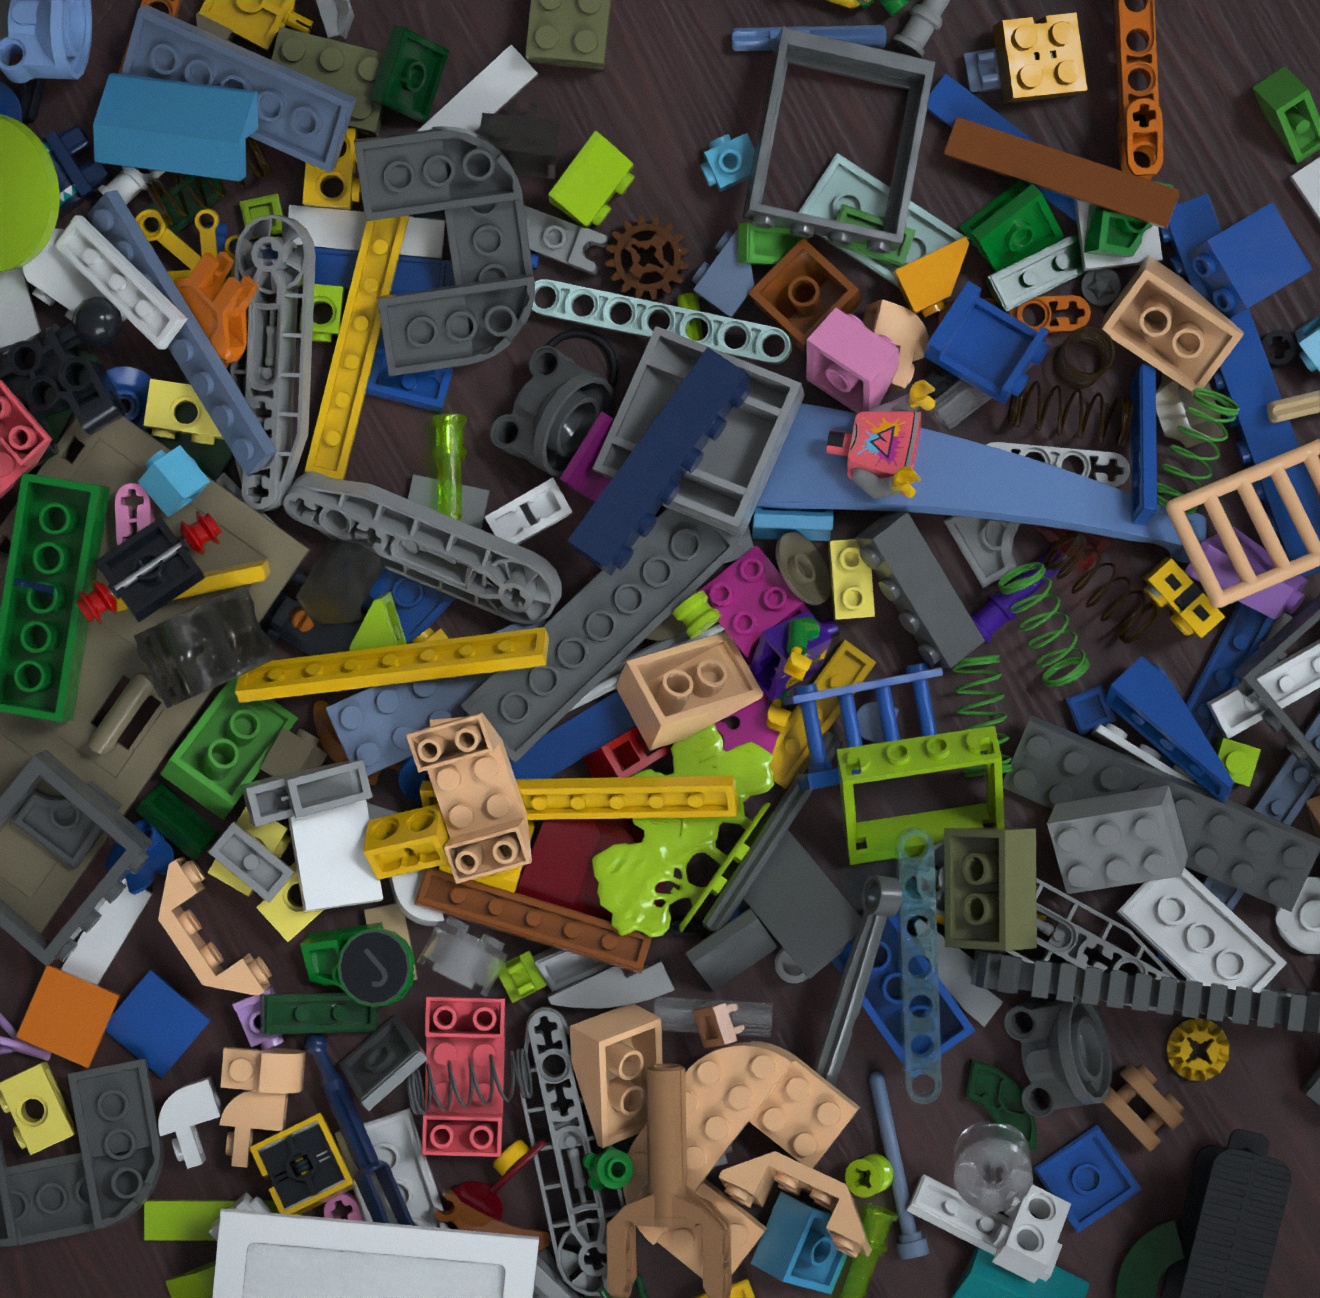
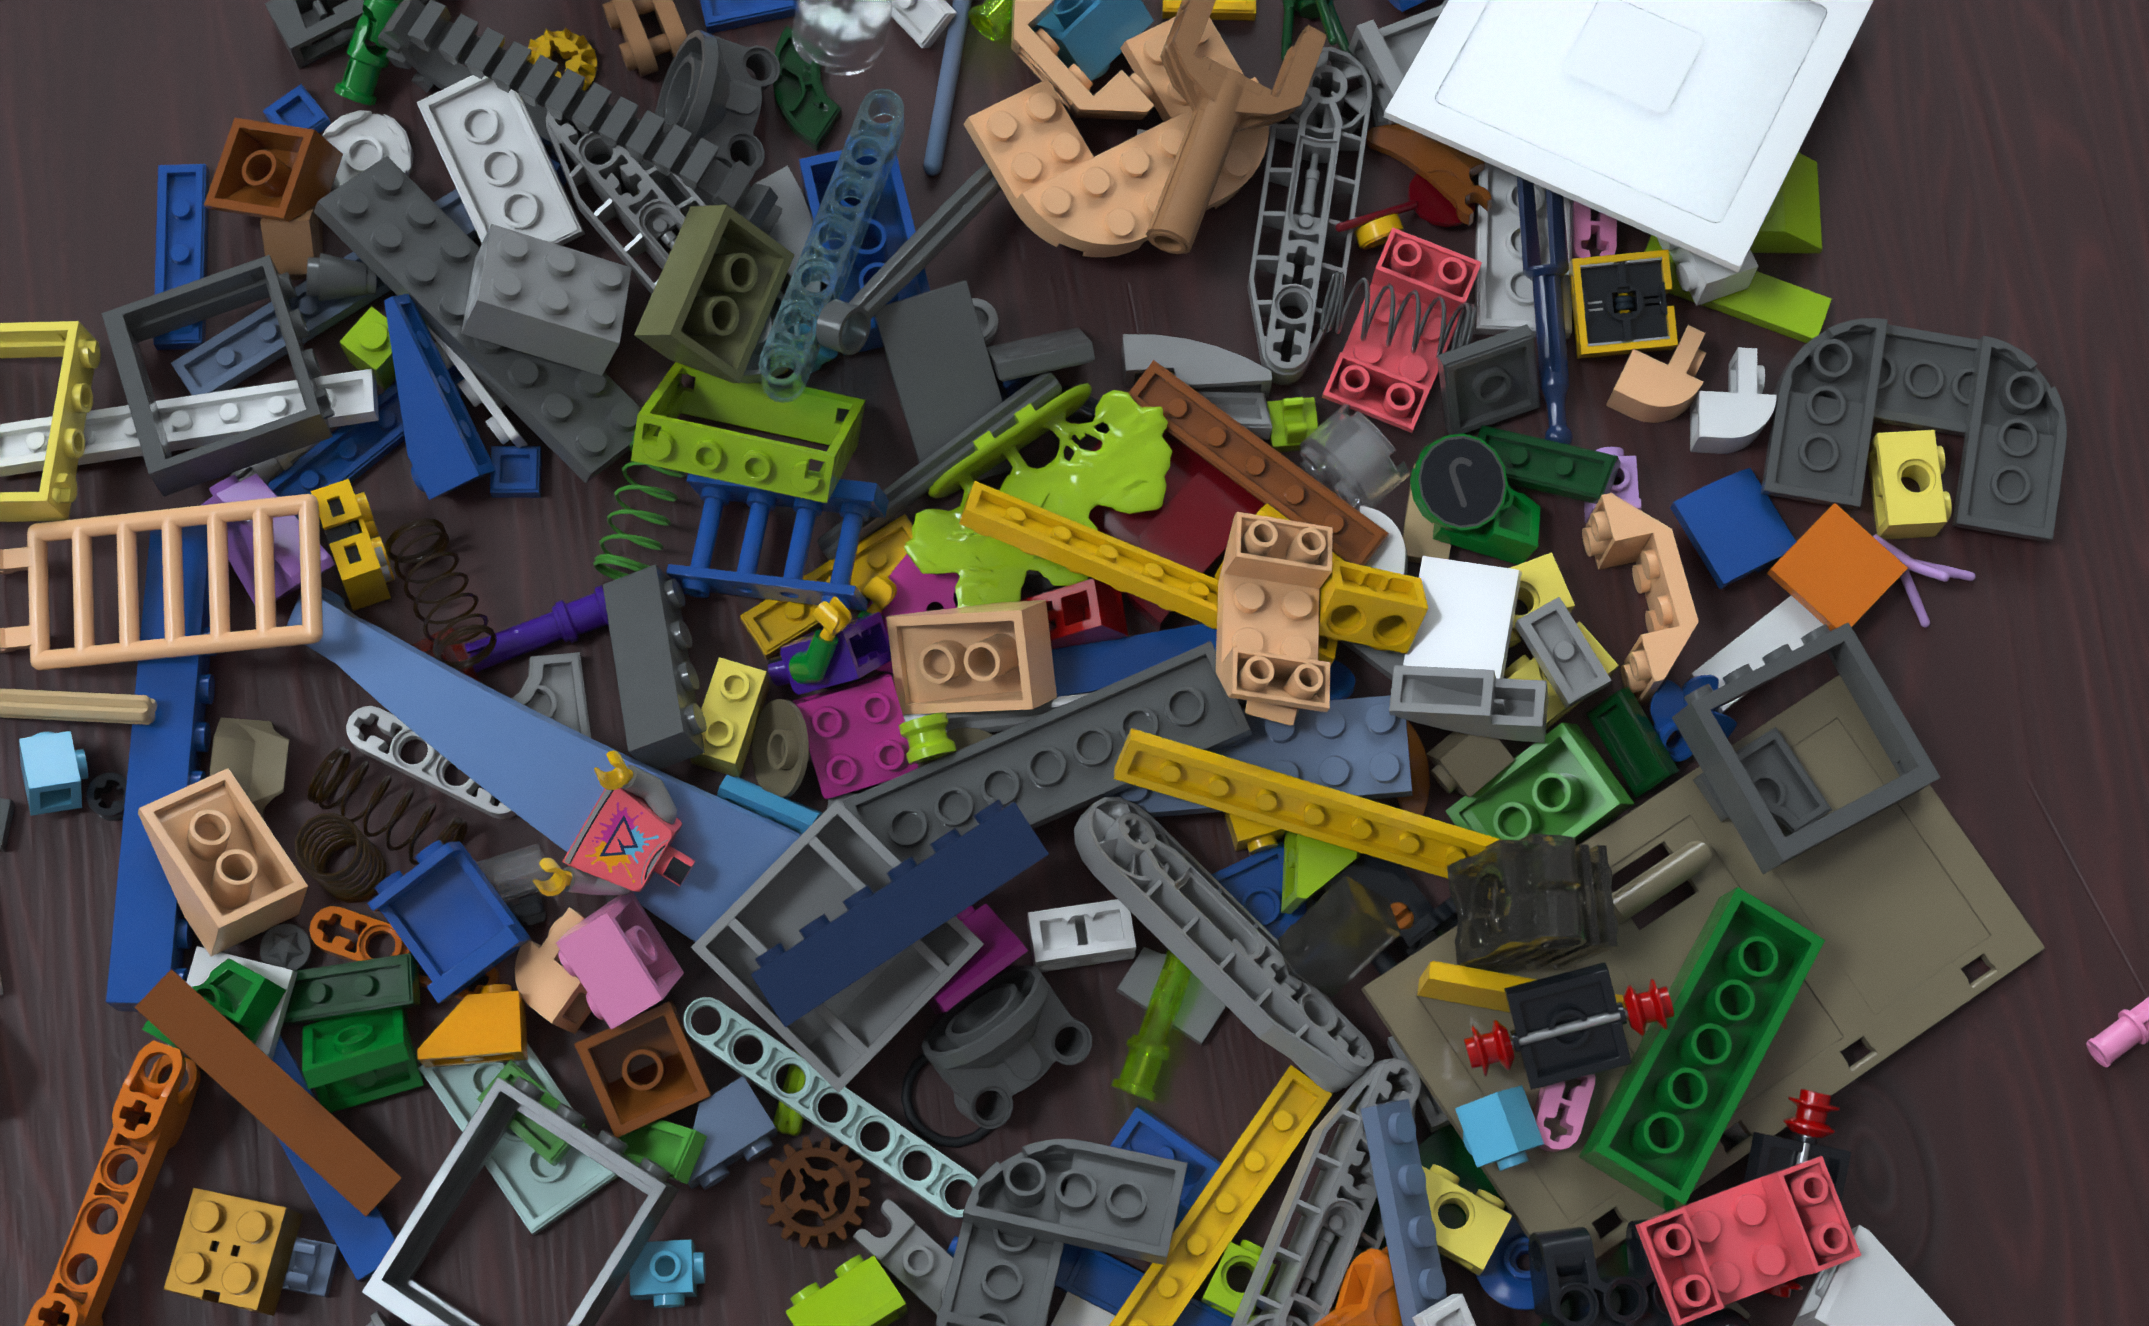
camera: 165 degrees left, 15 degrees down
(35, 586) = (1715, 1059): clear blue piece -> none
(263, 1070) = (1623, 419): light nougat brick -> none
(600, 1166) = (1275, 168): green brick -> none
(611, 1066) = (1226, 277): light nougat slope -> none
(678, 1016) = (1063, 282): clear piece -> none
(716, 1025) = (1091, 272): nougat tile -> none
(870, 722) = (773, 551): sand blue tile -> none
(878, 1175) = (981, 75): lime wheel -> none
(1024, 583) = (543, 617): bright green piece -> none
(1143, 445) = (317, 732): blue tile -> none
(1231, 410) = (221, 738): bright green piece -> none
(1249, 261) = (93, 900): blue panel -> none
(1285, 801) = (338, 278): none -> dark grey cone

